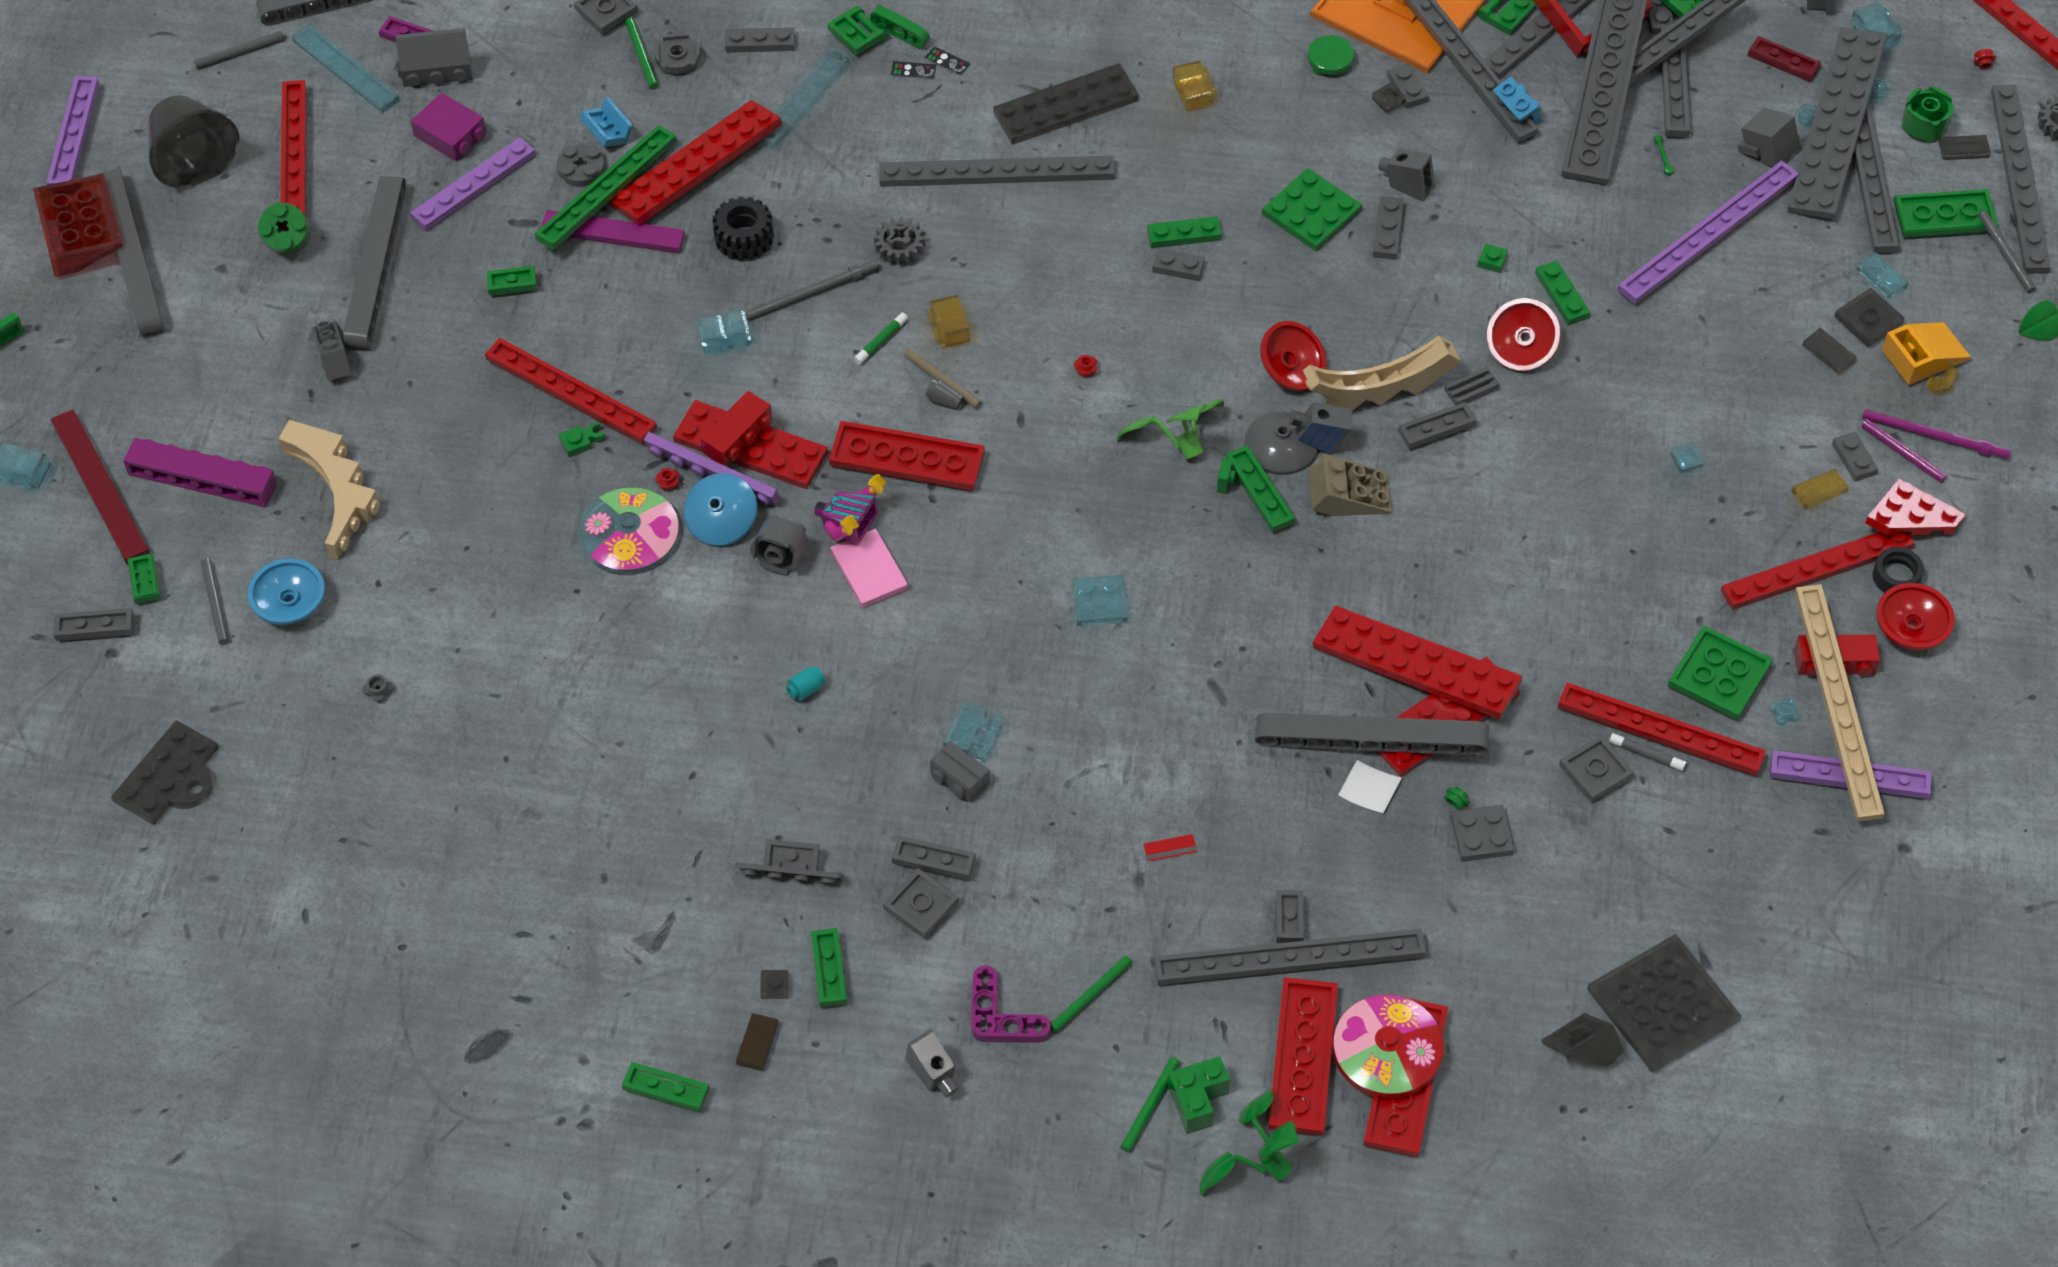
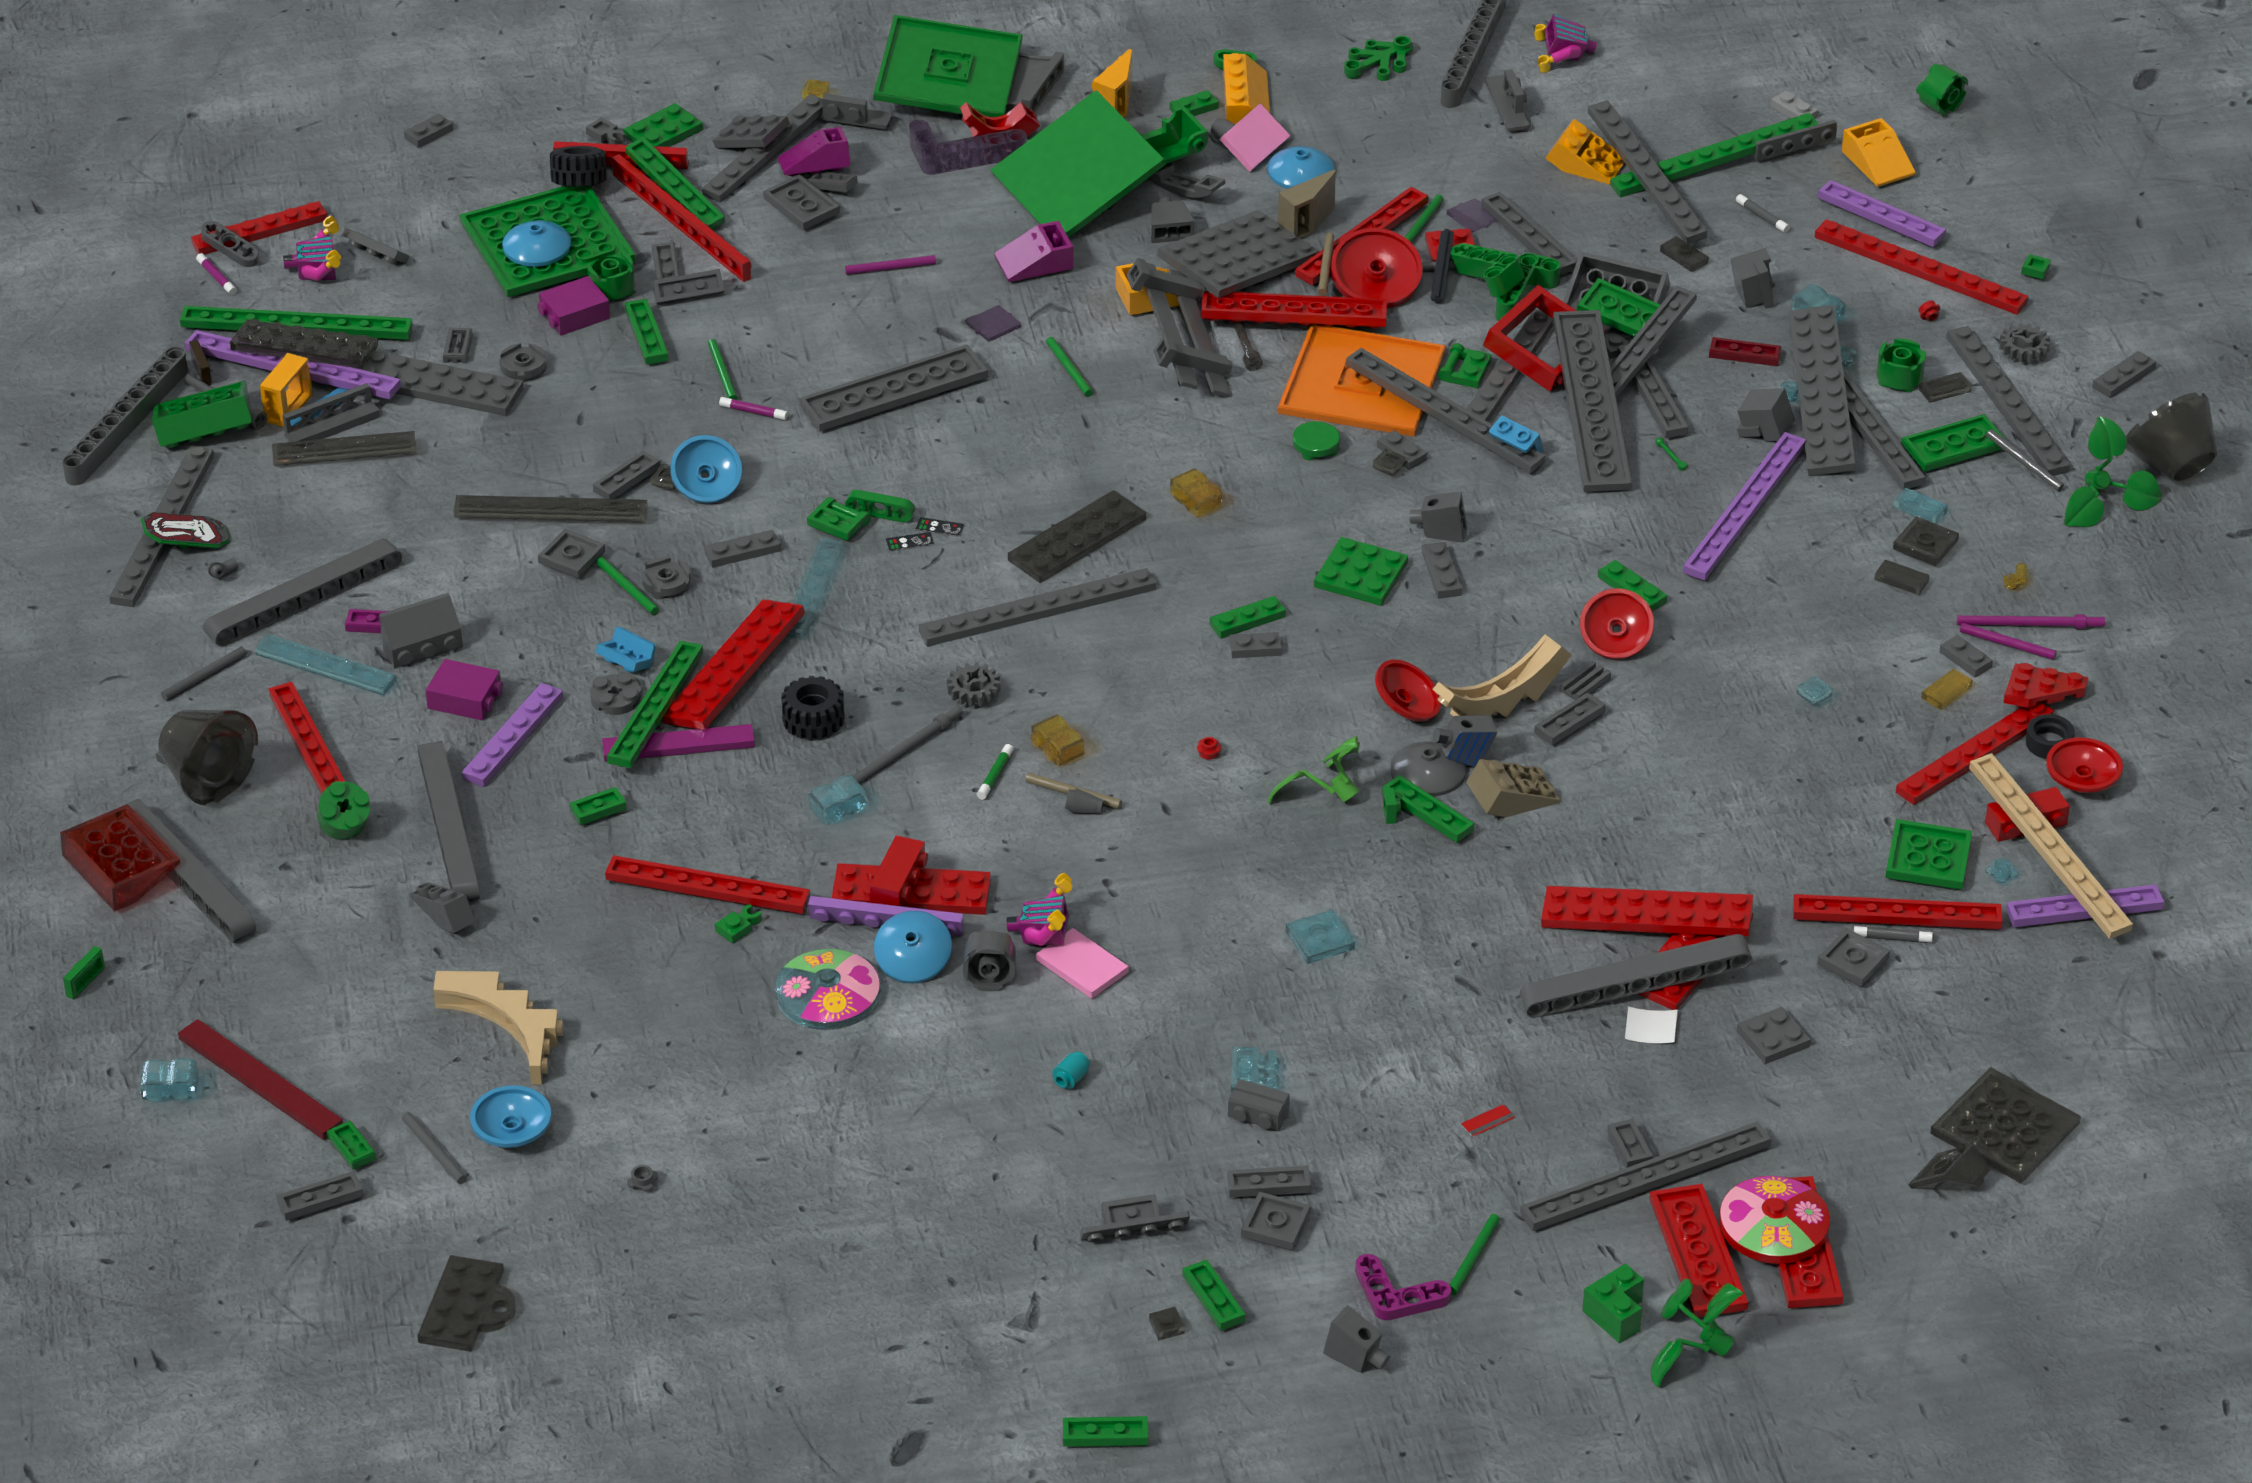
camera: 20 degrees left, 15 degrees down
(73, 129) = (65, 777): medium lavender plate -> none
(200, 472) = (362, 1040): magenta brick -> none
(670, 483) = (844, 936): red plate -> none
(757, 1042) = (1174, 1374): dark brown tile -> none
(907, 455) = (1079, 858): red plate -> none
(1149, 1106) = (1574, 1327): green bar -> none
(1457, 798) = (1737, 1011): green plate -> none
(1492, 258) = (1553, 572): green plate -> none
(1923, 350) = (1986, 556): light orange slope -> none

